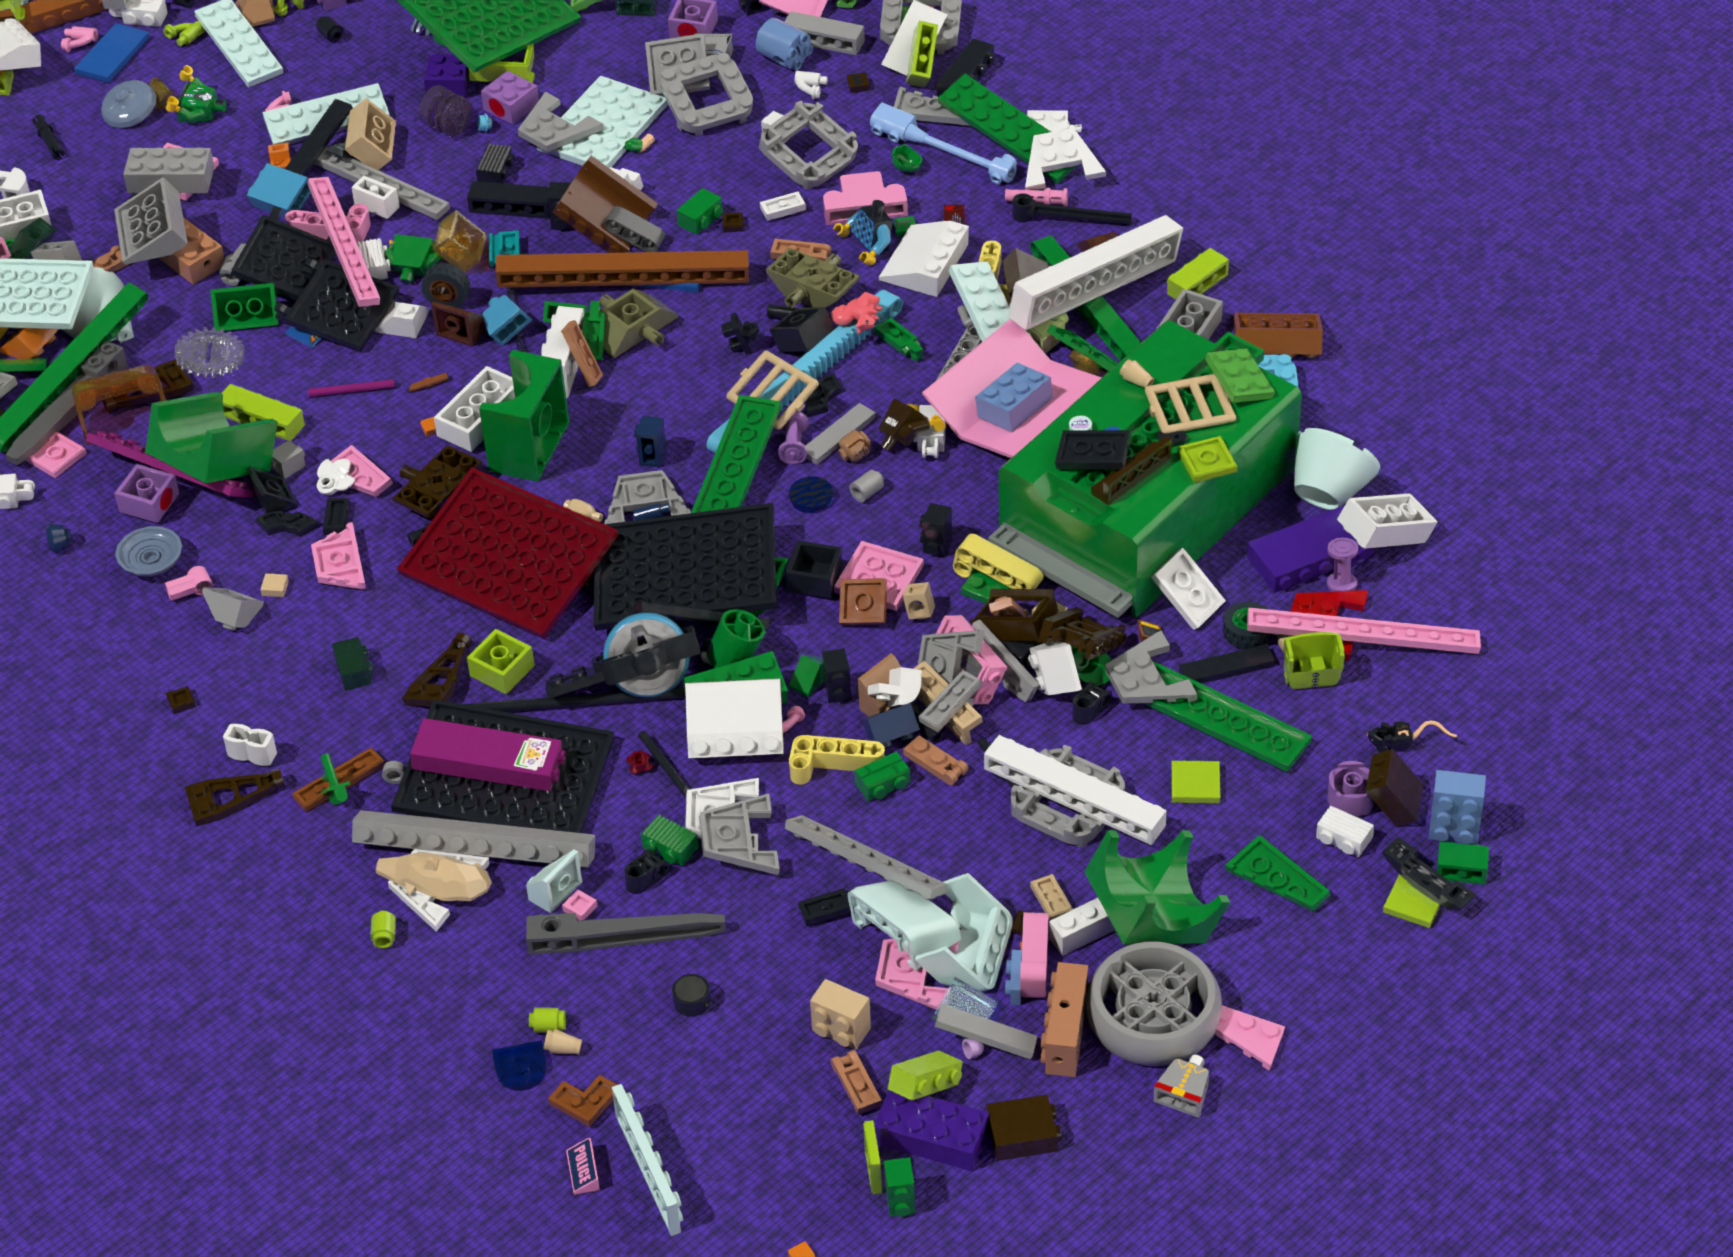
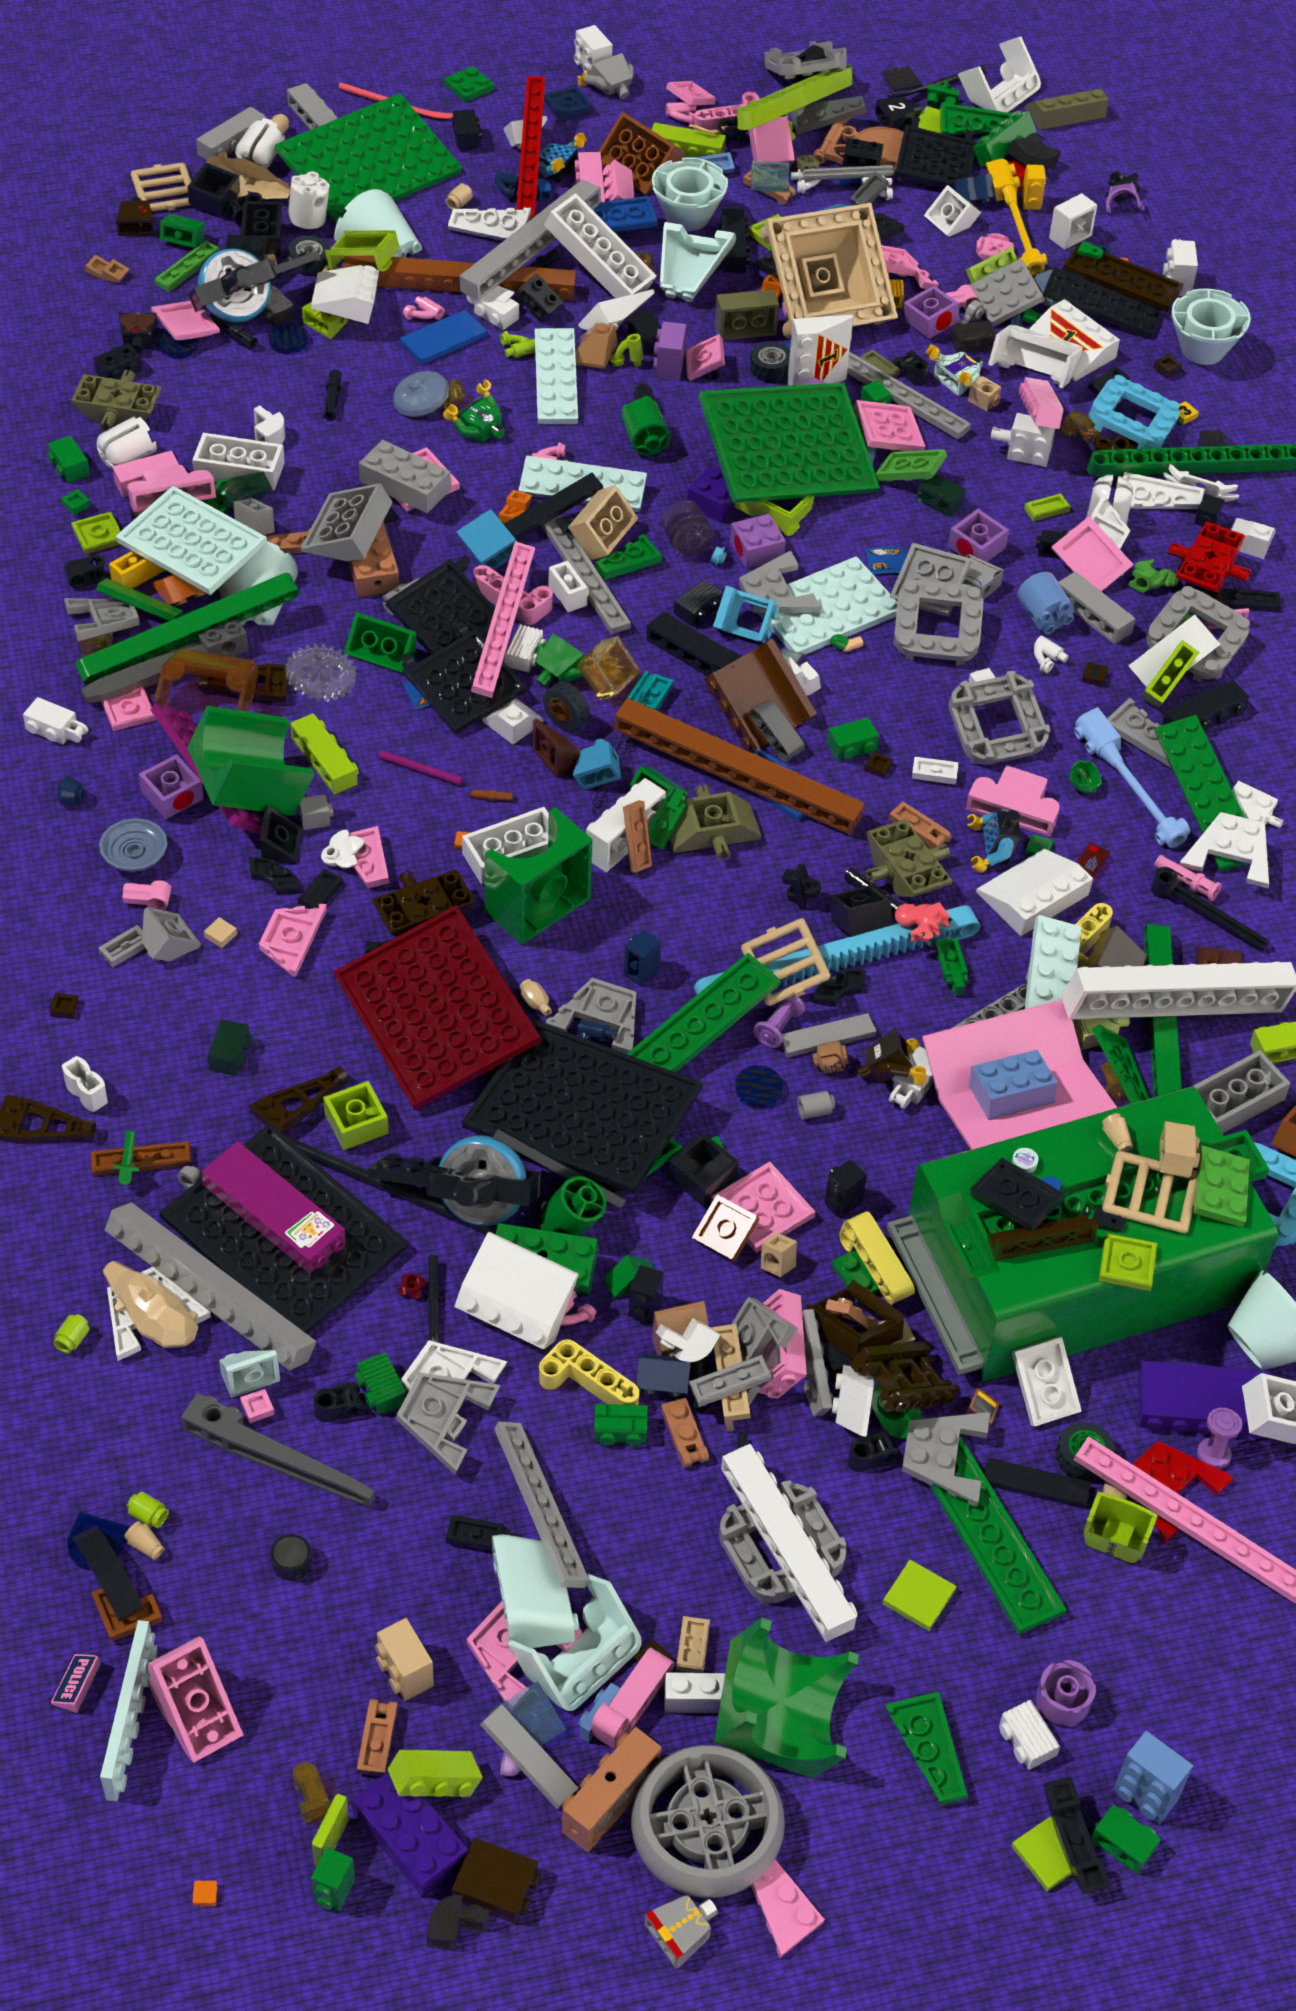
camera: 25 degrees right, 5 degrees up
(201, 635) = (127, 948): none -> light grey tile
(349, 48) = (645, 426): none -> green cylinder
(410, 155) = (633, 557): none -> green wing
(528, 156) = (730, 609): none -> medium azure window
(554, 1073) = (108, 1572): none -> black slope
(625, 69) = (885, 559): none -> blue sticker
(694, 1123) = (193, 1699): none -> bright pink brick
(834, 1143) = (310, 1786): none -> clear yellow leg
(1009, 1170) = (449, 1917): none -> clear smoke brick
(1191, 363) = (1178, 1149): none -> tan brick
(1394, 787) = (1105, 1718): dark brown brick -> none
(1399, 736) = (1154, 1658): black animal -> none

